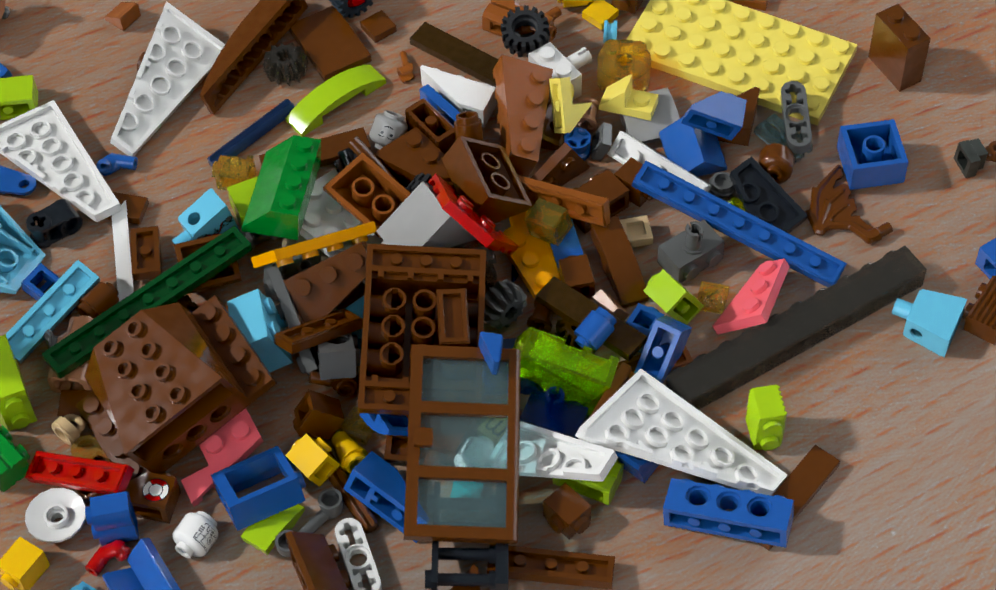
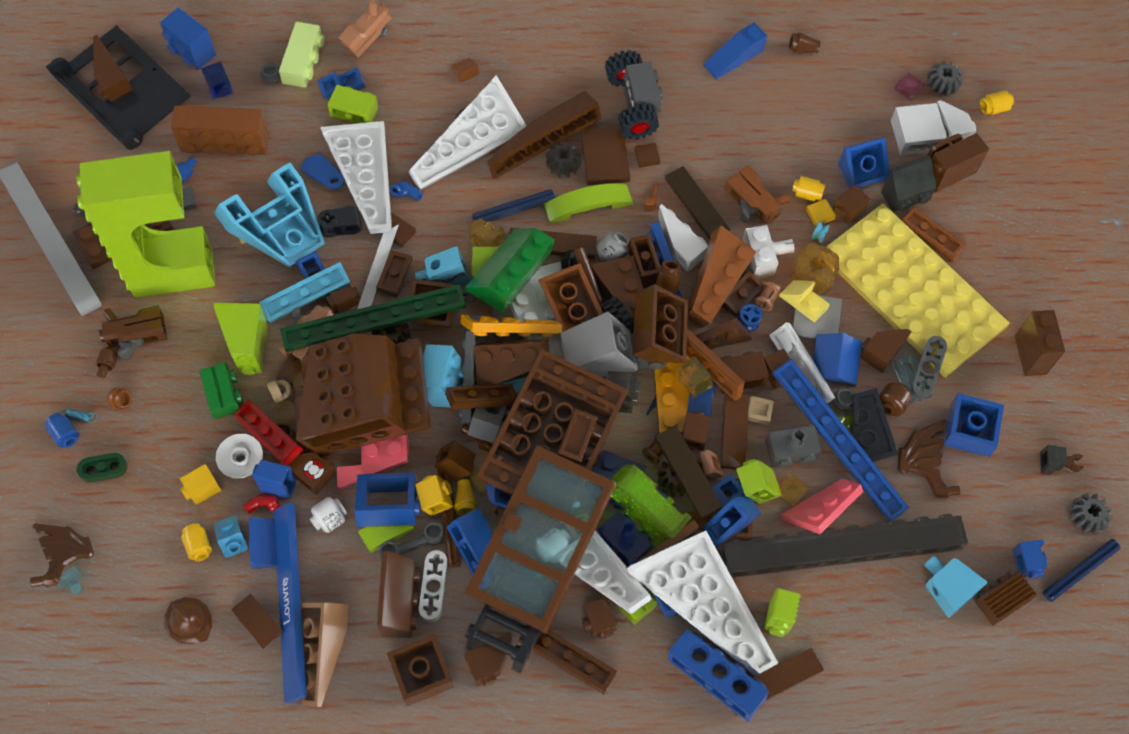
camera: 20 degrees right, 10 degrees up
(462, 211) = (625, 353): red wing -> none
(491, 349) = (593, 477): blue slope -> none
(503, 304) = (630, 429): dark grey gear -> none
(524, 18) = (747, 197): black tyre -> none
(564, 111) = (751, 290): light yellow slope -> none
(595, 329) = (684, 486): blue brick -> none
(601, 141) = (769, 323): dark grey tile -> none
(718, 114) = (865, 344): slope -> none

